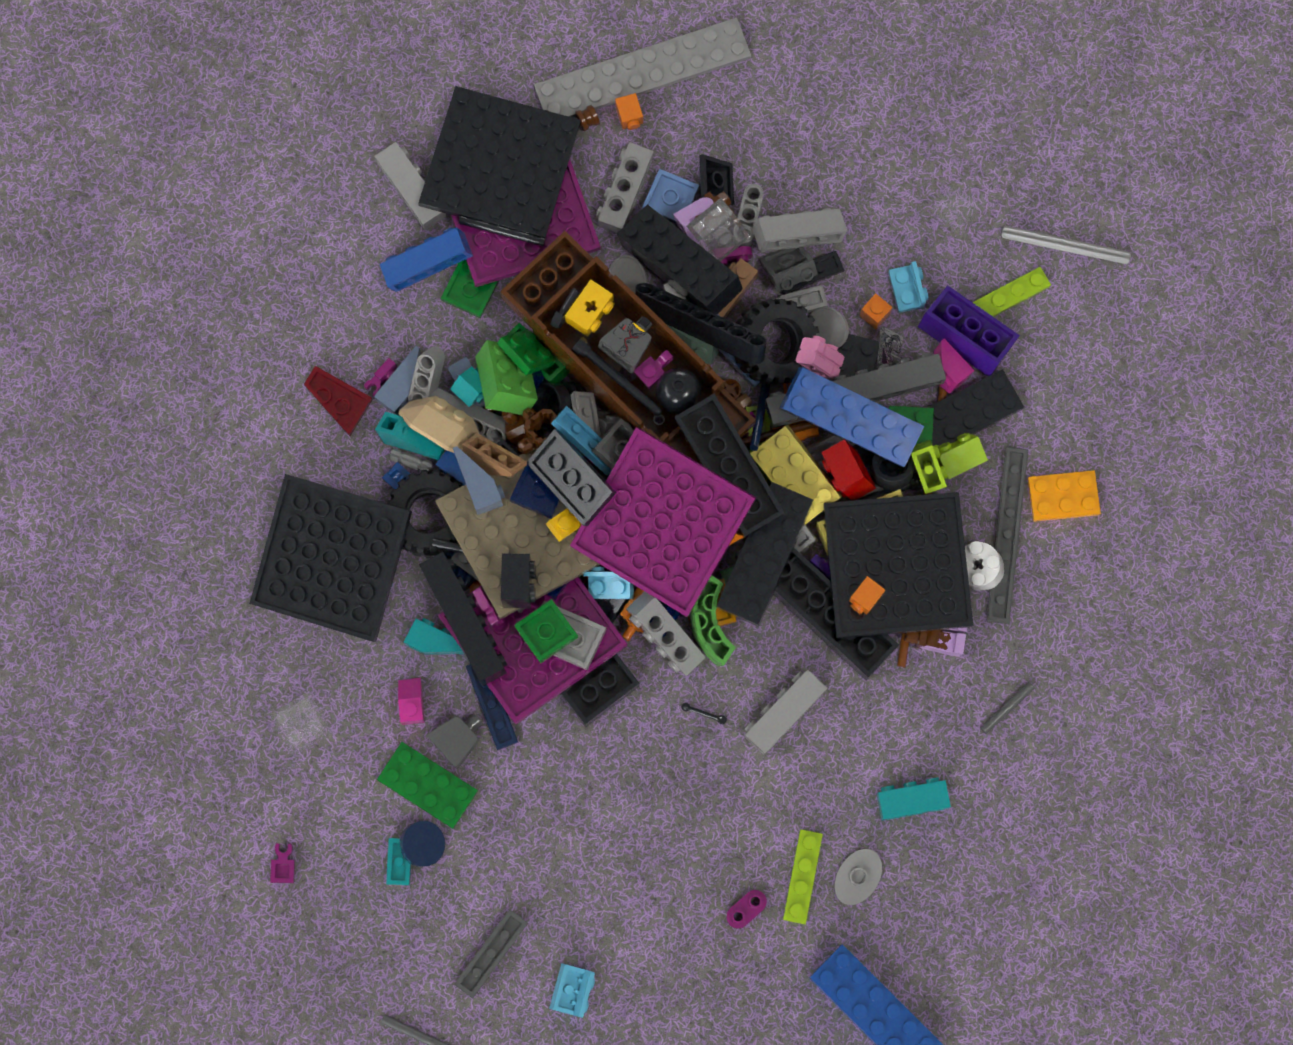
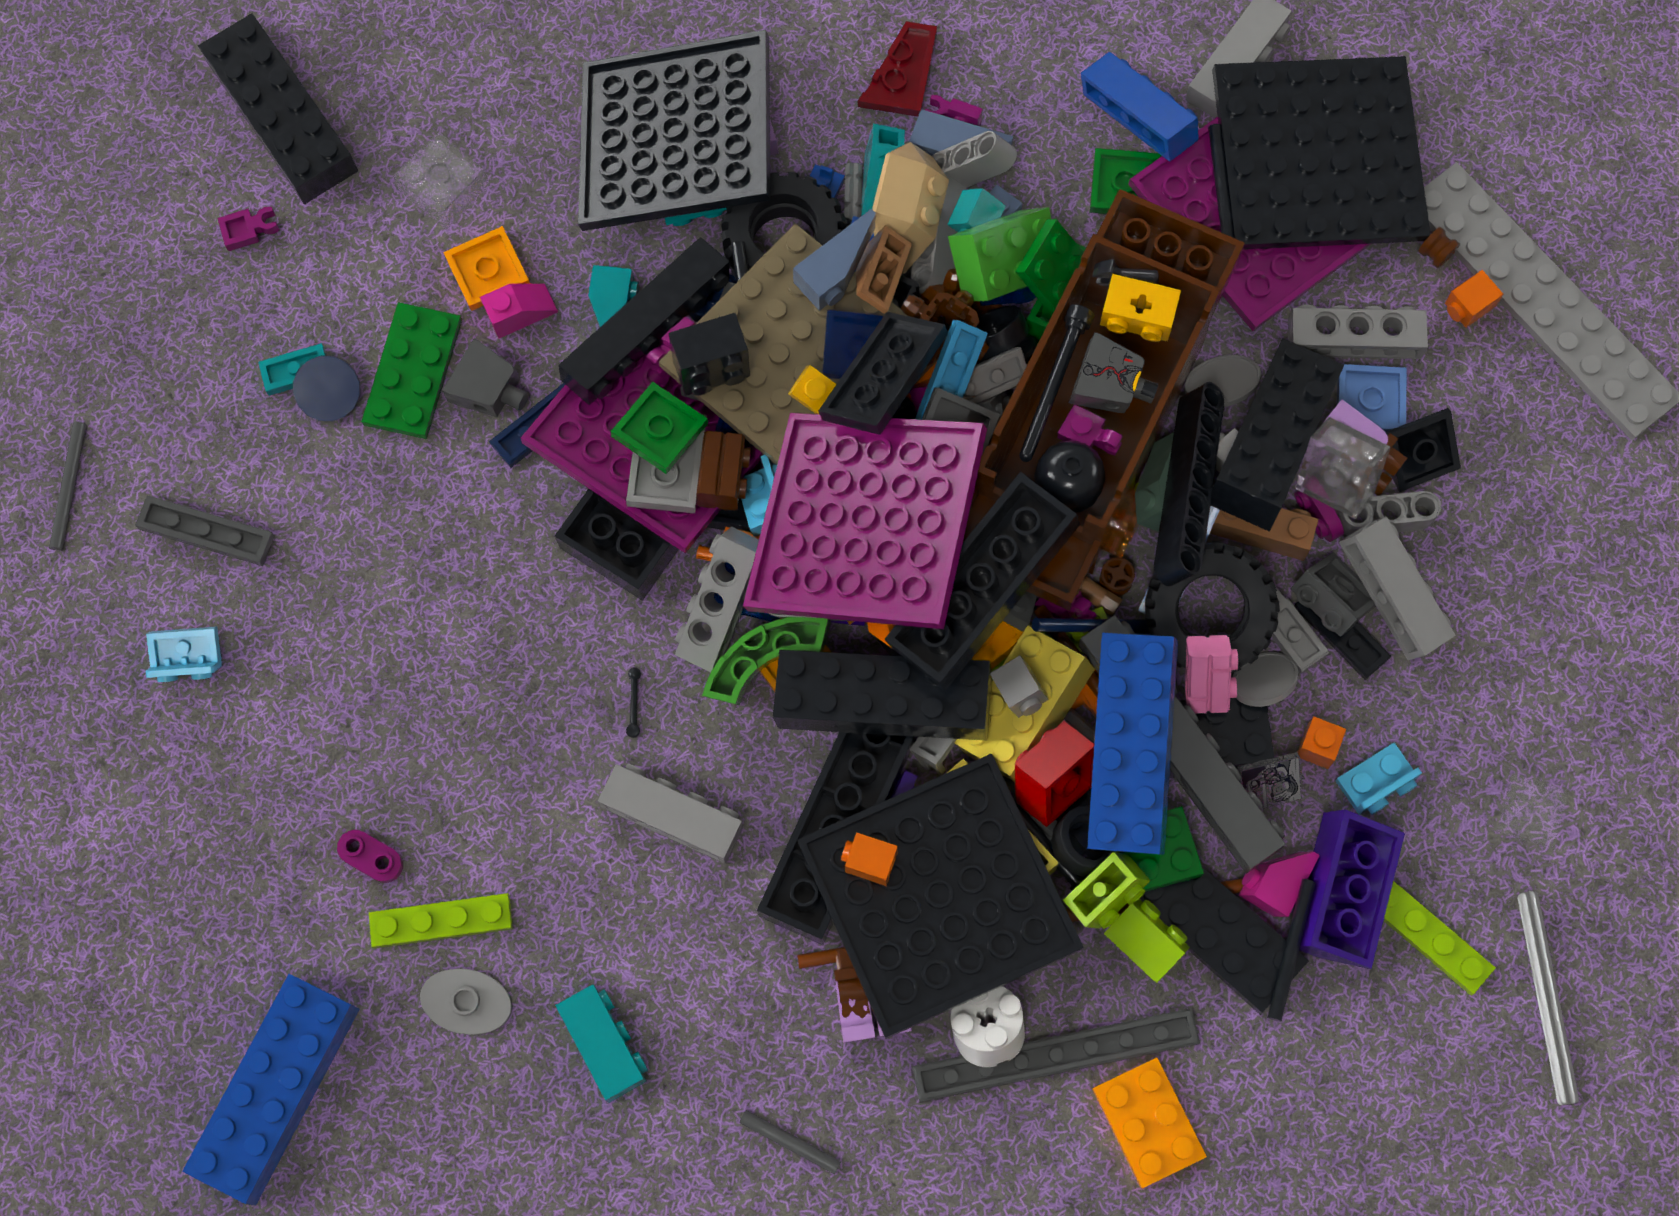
camera: 75 degrees right, 5 degrees down
(203, 818) = (278, 108): none -> black brick
(374, 713) = (485, 266): none -> light orange plate
(585, 602) = (721, 470): none -> reddish brown brick
(792, 470) = (1019, 687): none -> light grey brick
(993, 374) = (1291, 950): none -> black bar

